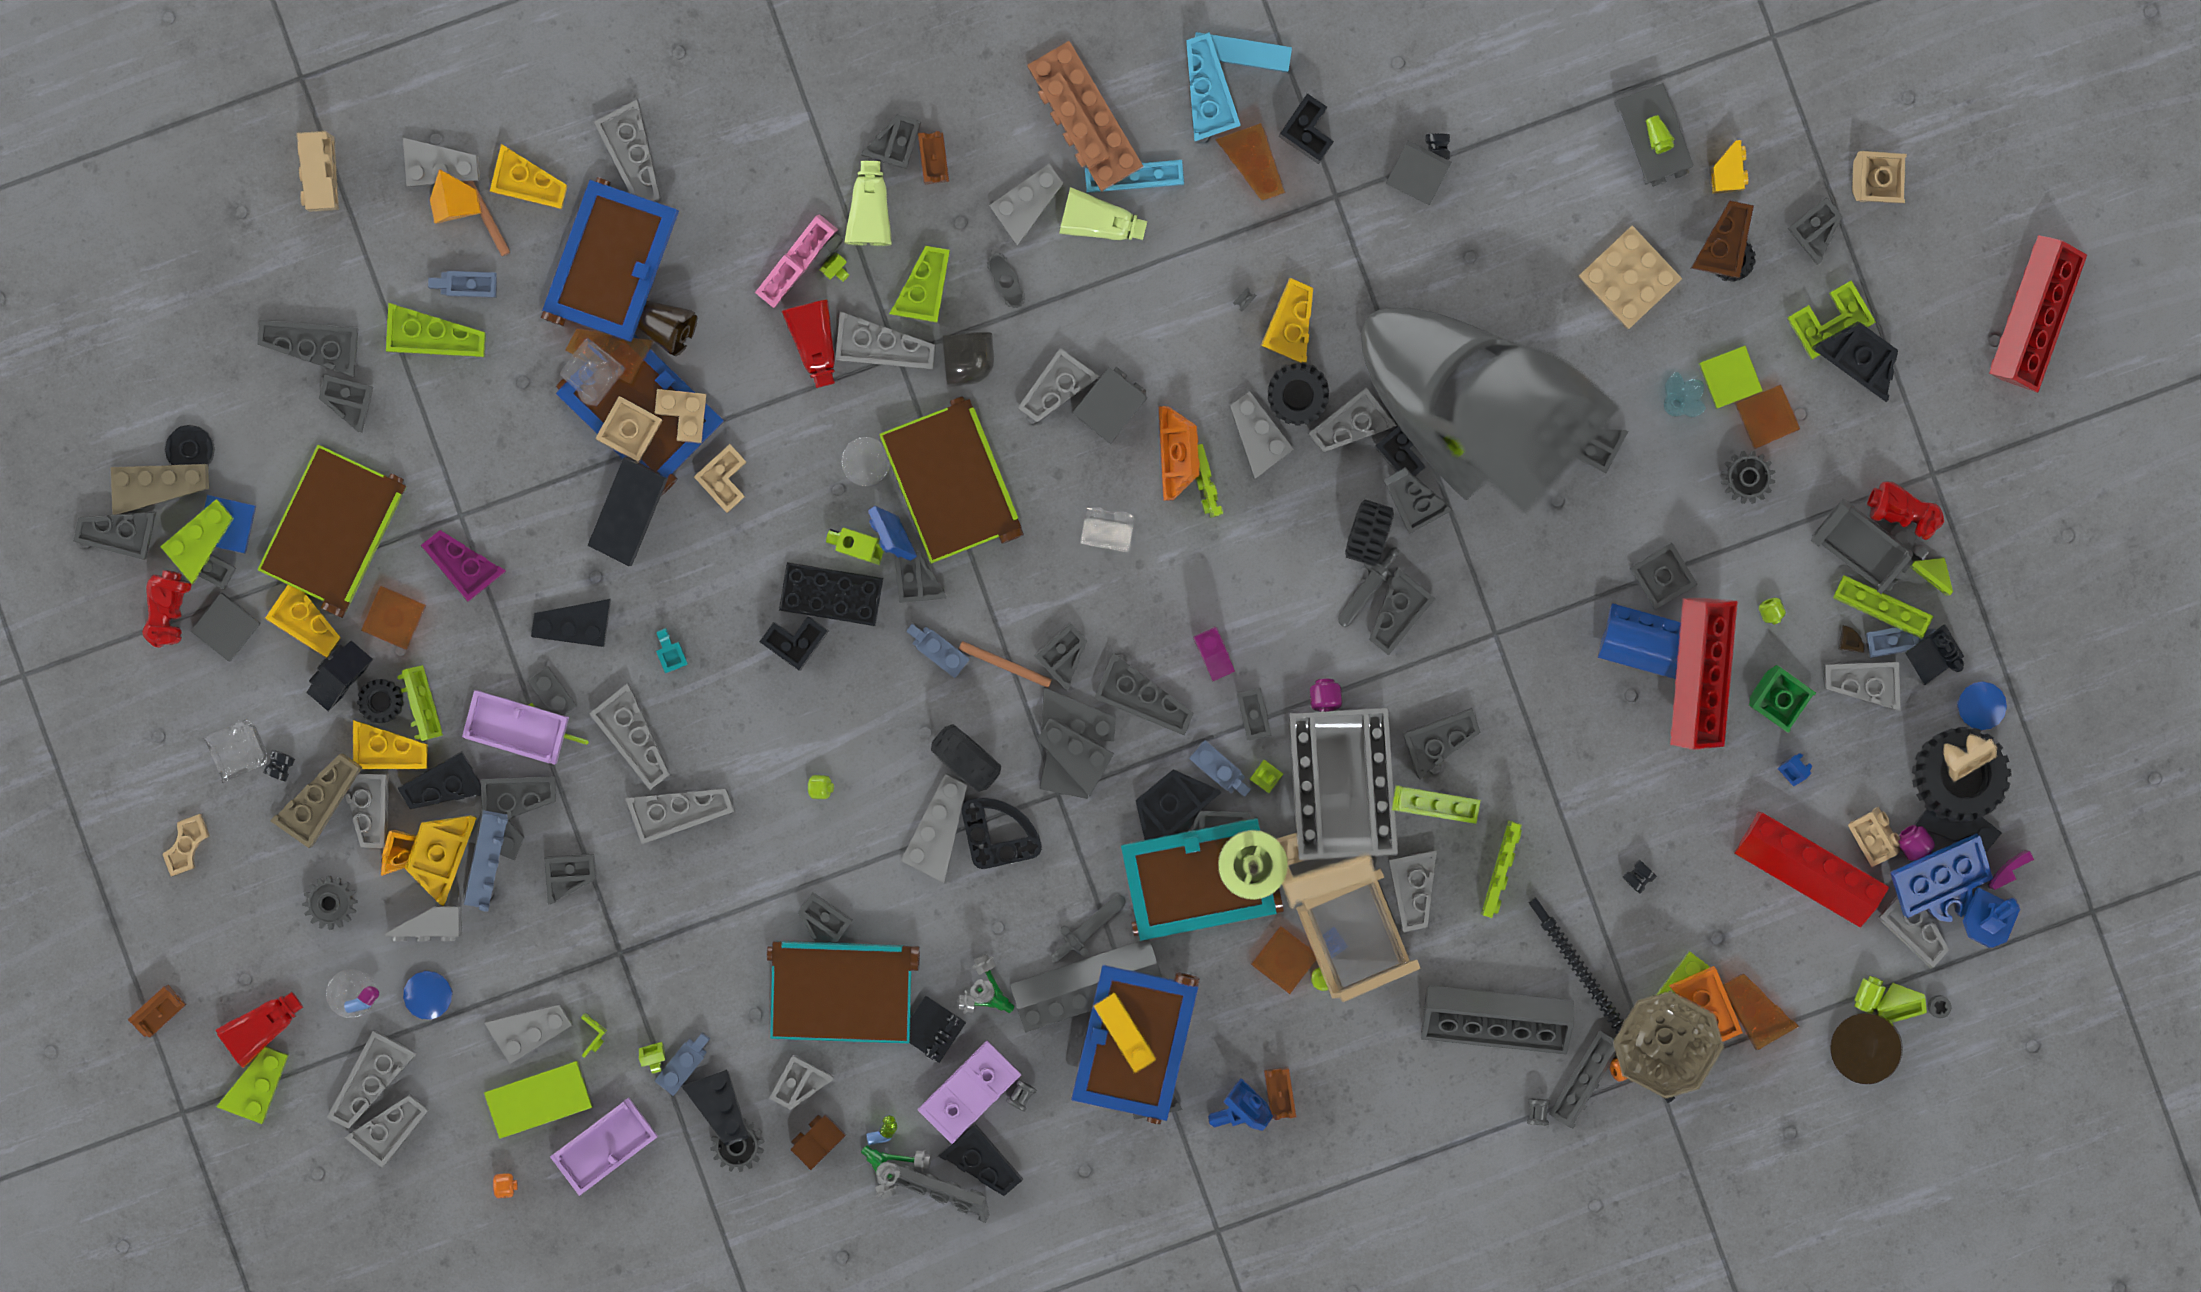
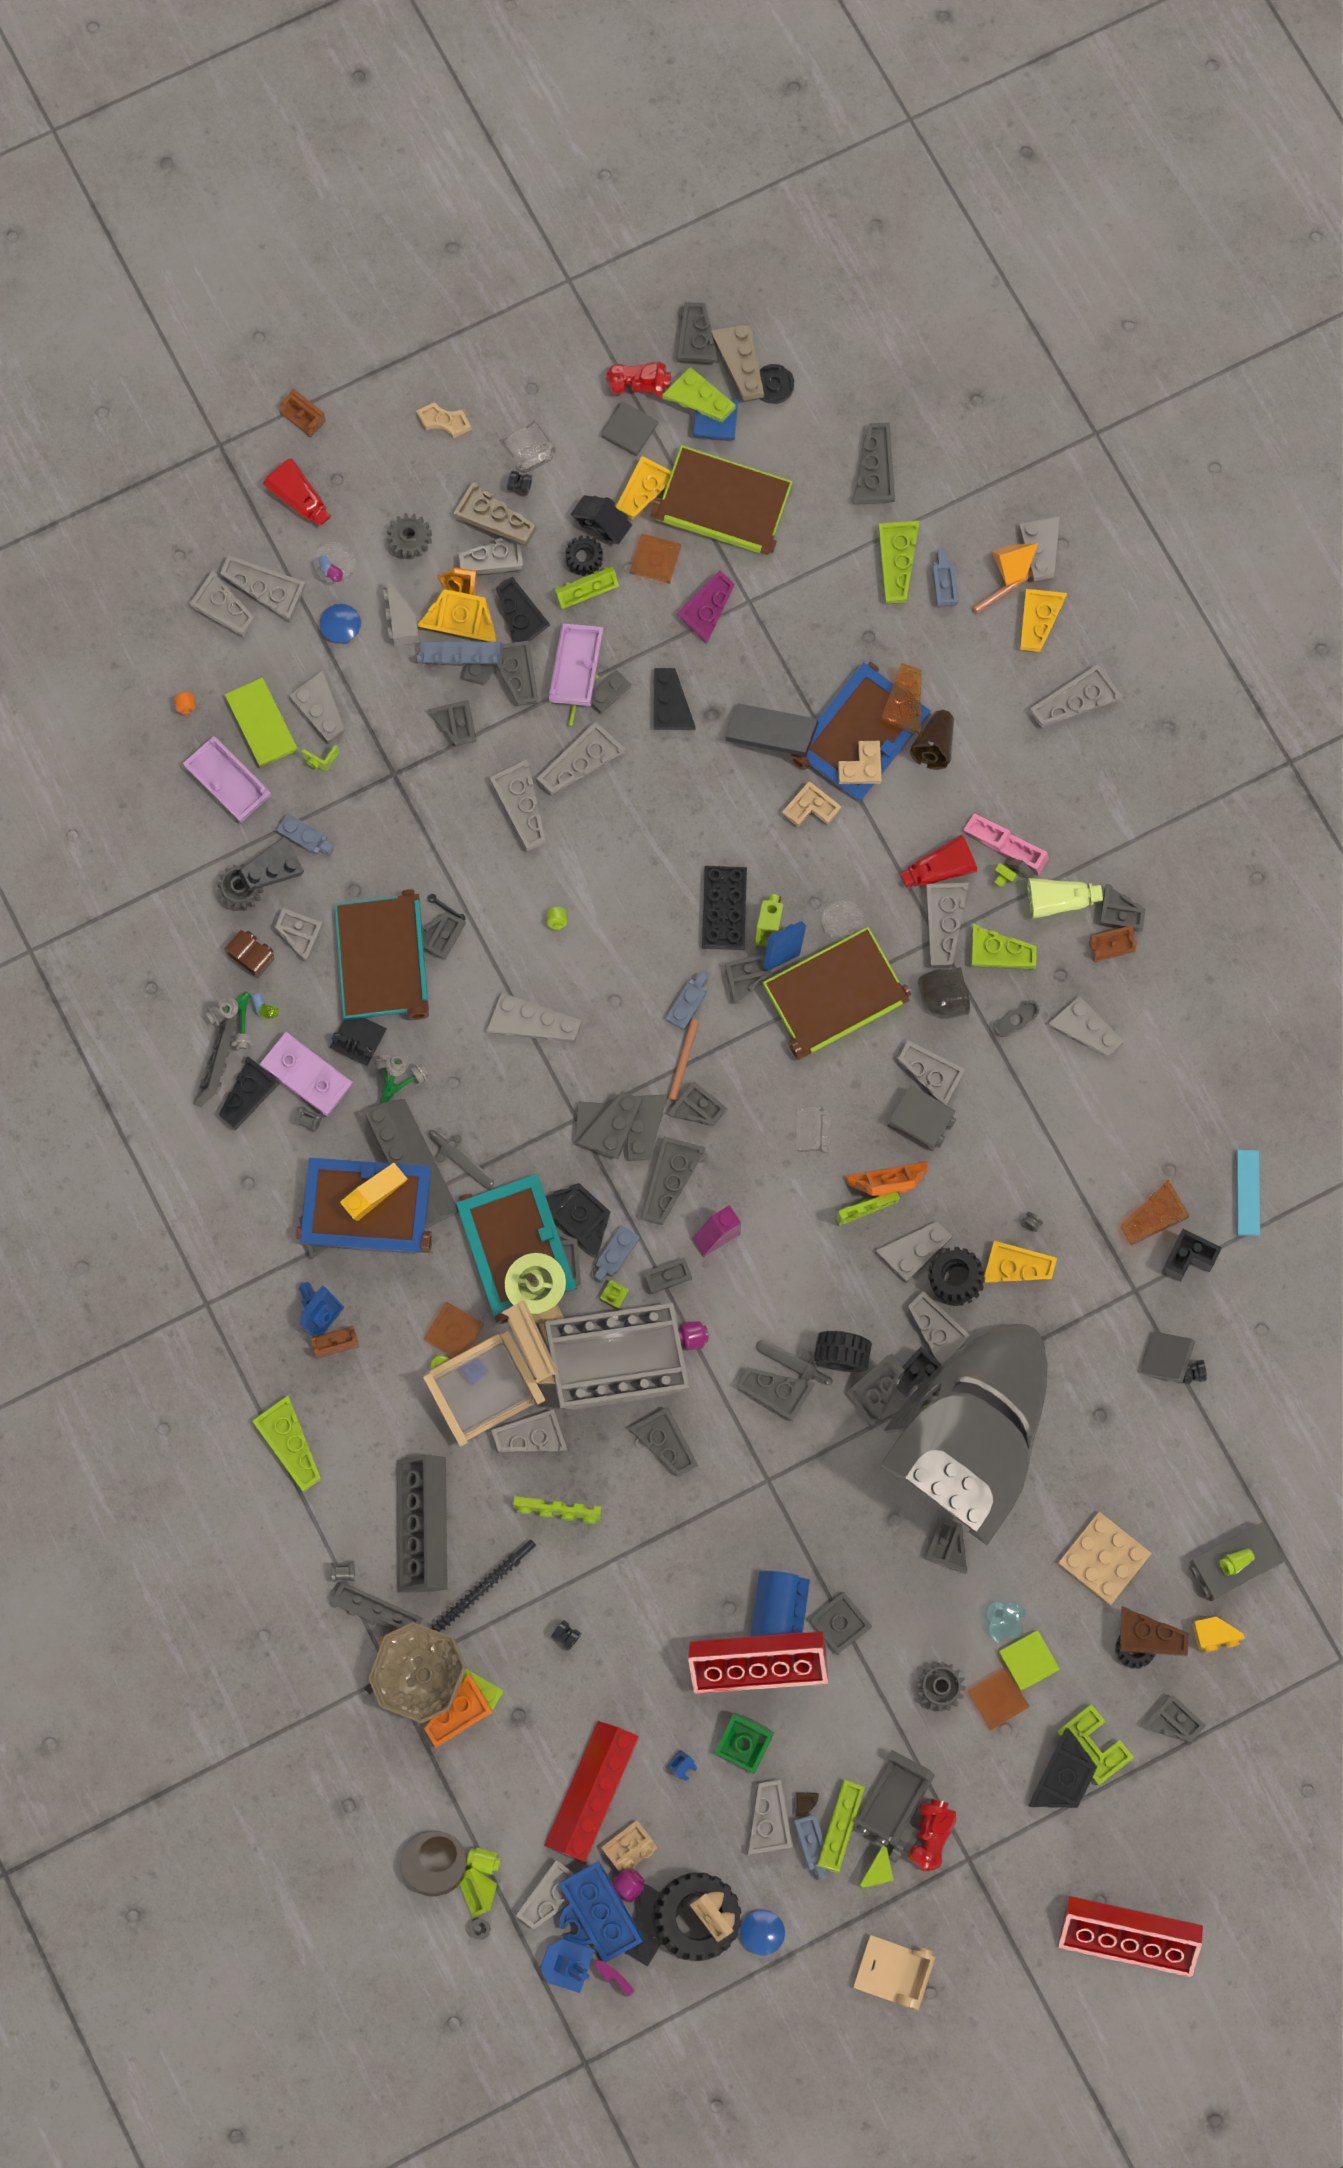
camera: 85 degrees right, 15 degrees down
(217, 572) = (675, 416): dark grey plate -> none
(256, 1087) = (246, 498): lime wing -> none
(318, 171) = (1021, 452): tan wedge -> none
(347, 400) = (833, 499): dark grey wing -> none
(386, 750) = (543, 565): yellow wing -> none
(591, 372) = (885, 685): clear slope -> none
(609, 261) = (982, 690): door -> none
(629, 429) = (841, 723): tan tile -> none
(652, 1056) = (308, 809): lime tile -> none
(670, 655) = (655, 782): teal plate -> none
(777, 925) = (433, 899): none -> black hinge
(795, 648) = (675, 881): black brick -> none
(966, 758) = (597, 1031): black tyre -> none
(994, 850) = (520, 1070): black beam -> none
(1084, 116) = (1169, 1065): nougat plate -> none
(1096, 218) = (1083, 1085): yellowish green piece -> none
(1151, 175) = (1124, 1115): medium azure tile -> none
(1210, 96) = (1206, 1169): medium azure wing -> none
(1384, 1157) = (286, 1438): none -> lime wing
(1436, 804) = (608, 1441): lime tile -> none
(1757, 1013) = (455, 1759): clear orange wing -> none
(1772, 610) = (823, 1725): lime piece -> none
(1879, 177) = (1231, 1771): tan slope -> none
(1936, 655) = (803, 1880): black hinge -> none
(2043, 567) = (897, 1974): none -> tan door

